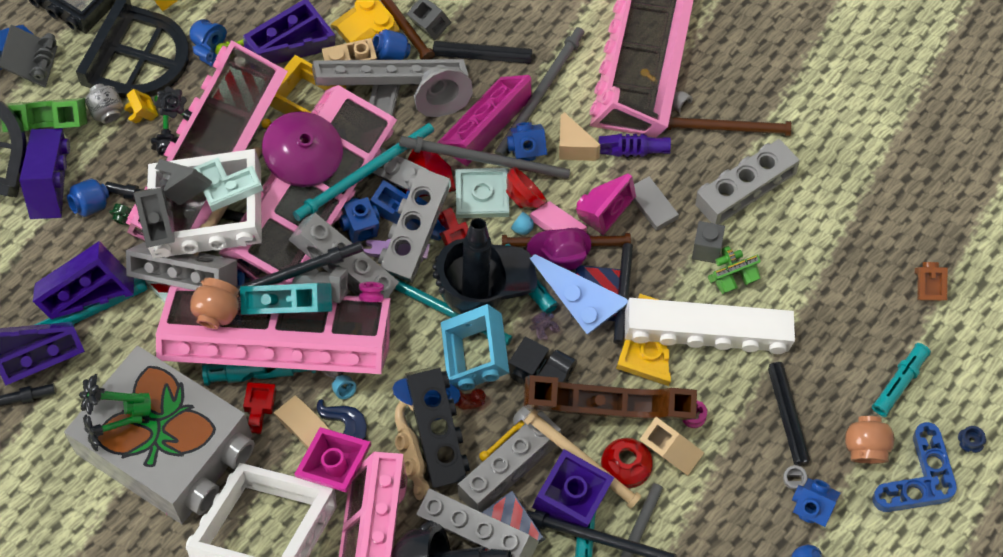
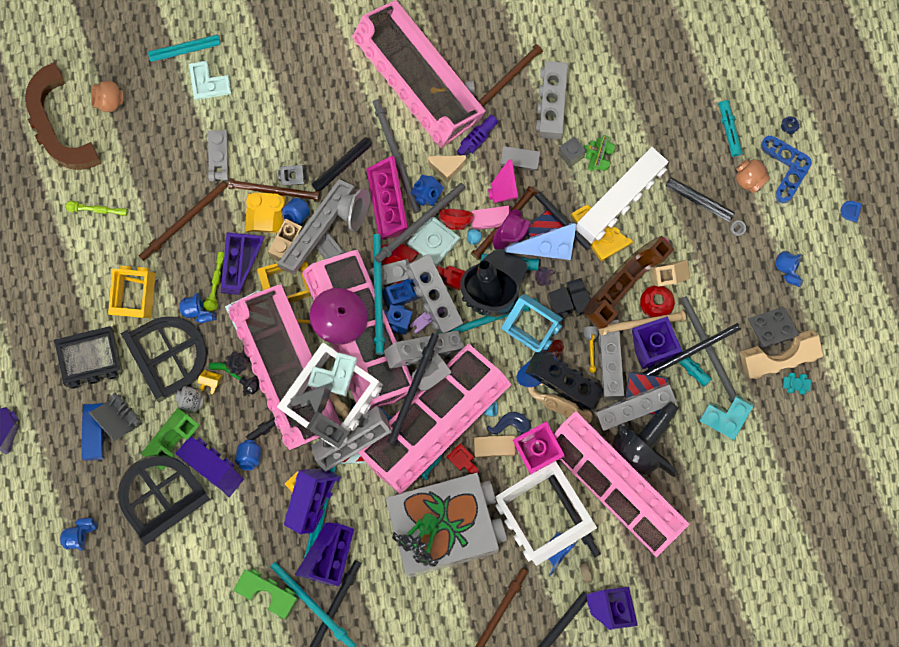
camera: 50 degrees left, 15 degrees up
(120, 213) = (275, 444): dark green plate -> none
(214, 303) = (403, 438): nougat piece -> none
(286, 298) = (430, 398): teal slope -> none
(371, 291) = (458, 350): dark pink bush -> none
(815, 501) = (760, 230): blue brick -> none
(932, 282) = (691, 62): dark orange bracket -> none

